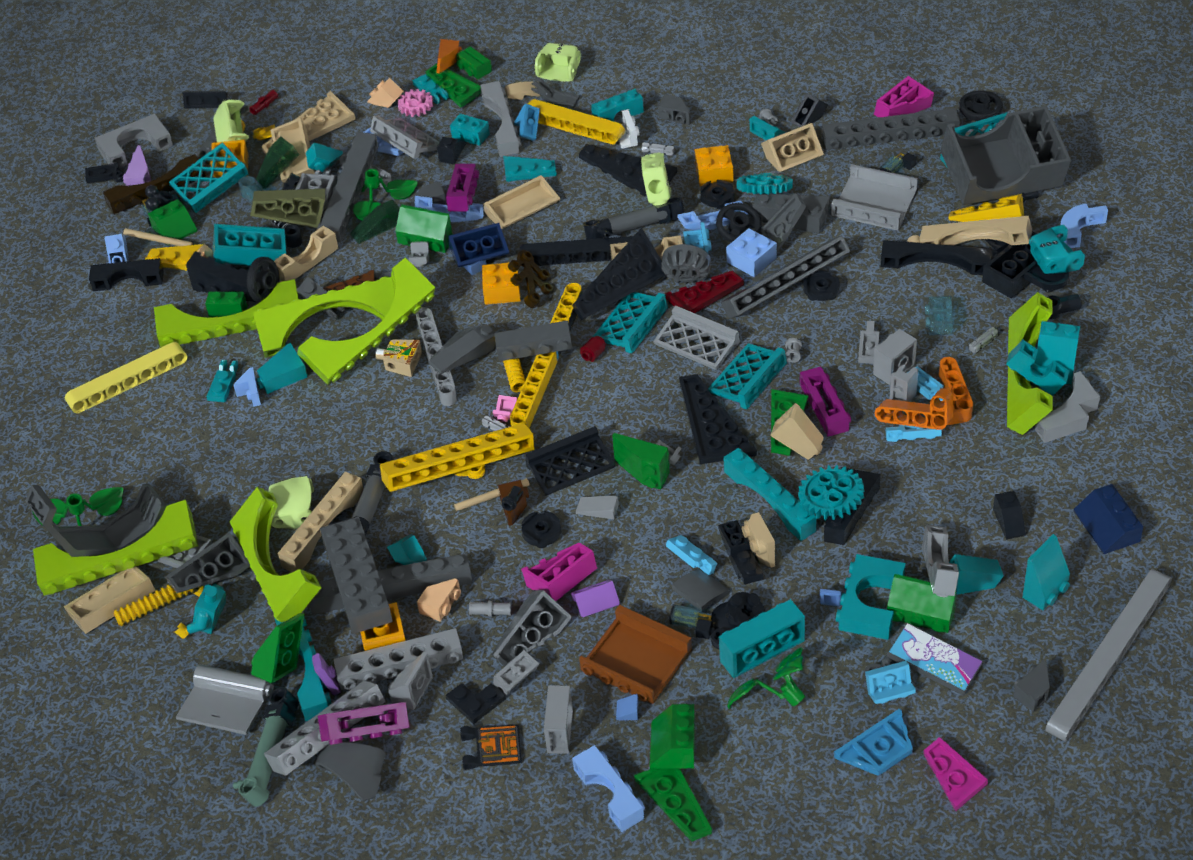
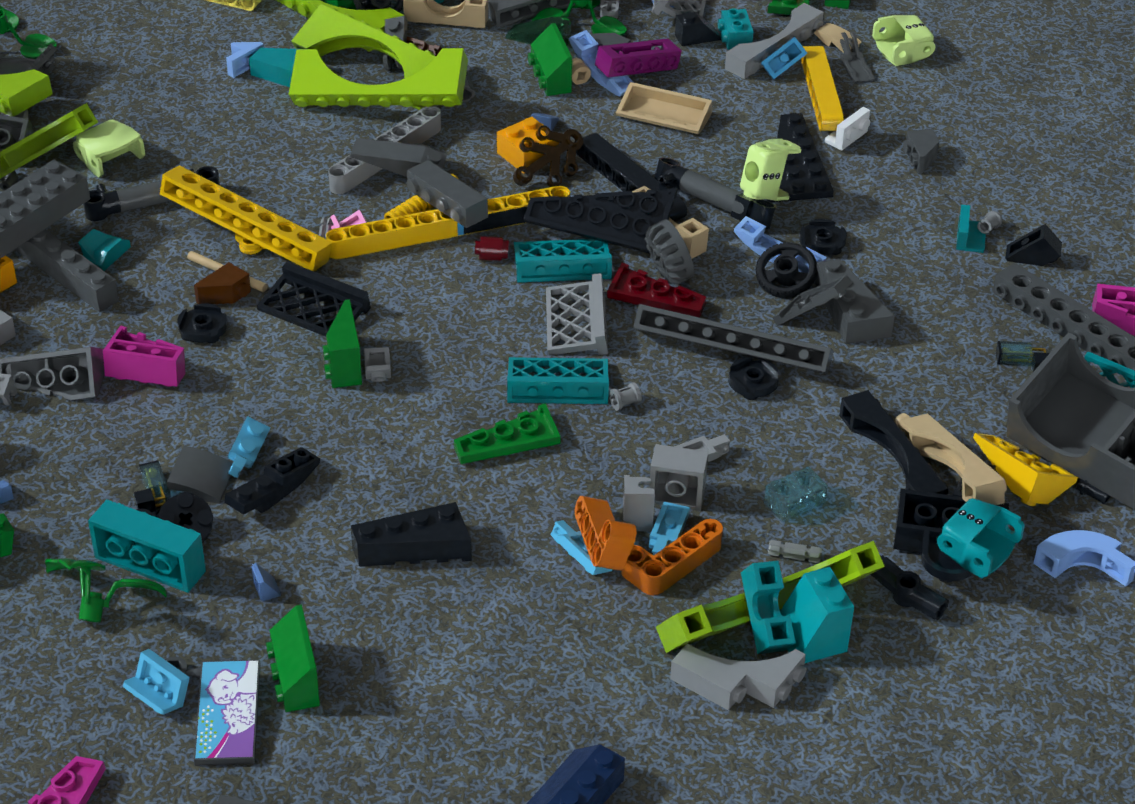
camera: 50 degrees right, 5 degrees down
(222, 382) = (260, 34): teal hinge -> none
(300, 546) = (125, 170): tan arch -> none
(401, 356) = (364, 124): tan torso -> none
(419, 253) = (521, 79): light grey bracket -> none
(438, 598) = (53, 294): light nougat slope -> none
(478, 245) = (564, 104): dark blue slope -> none
(489, 608) = (65, 334): light grey pin -> none
(510, 501) = (209, 275): black pin -> none
(527, 168) = (723, 93): teal wing -> none
(596, 598) = (132, 402): medium lavender panel -> none
(598, 506) = (267, 352): light grey slope -> none
(610, 107) = (893, 110): teal arch -> none
(637, 655) = (69, 468): dark orange panel -> none
(657, 148) = (850, 166): light grey axle -> none
(698, 238) = (725, 254): medium azure bracket -> none
(711, 426) = (448, 387): black wing -> none
(713, 164) = (862, 213): light orange brick -> none
(749, 473) = (363, 492): teal arch -> none
(751, 252) = (749, 299): light blue brick -> none
(760, 539) = (293, 483): tan slope -> none
(764, 183) = (866, 260): teal gear -> none
(793, 148) = (958, 260): tan slope -> none
(798, 432) = (479, 445): tan slope -> none
(831, 492) = (374, 507): teal gear -> none
(837, 419) = (564, 454): magenta brick -> none
(855, 615) = (249, 609): teal arch -> none
(875, 197) = (947, 363): light grey panel -> none
(878, 746) = (65, 716): dark azure wing -> none
(941, 573) = (301, 636): light grey arch -> none
(976, 573) = (378, 688): teal slope -> none
(1009, 514) = (509, 687): black slope -> none
(1046, 574) = (416, 749): teal slope -> none

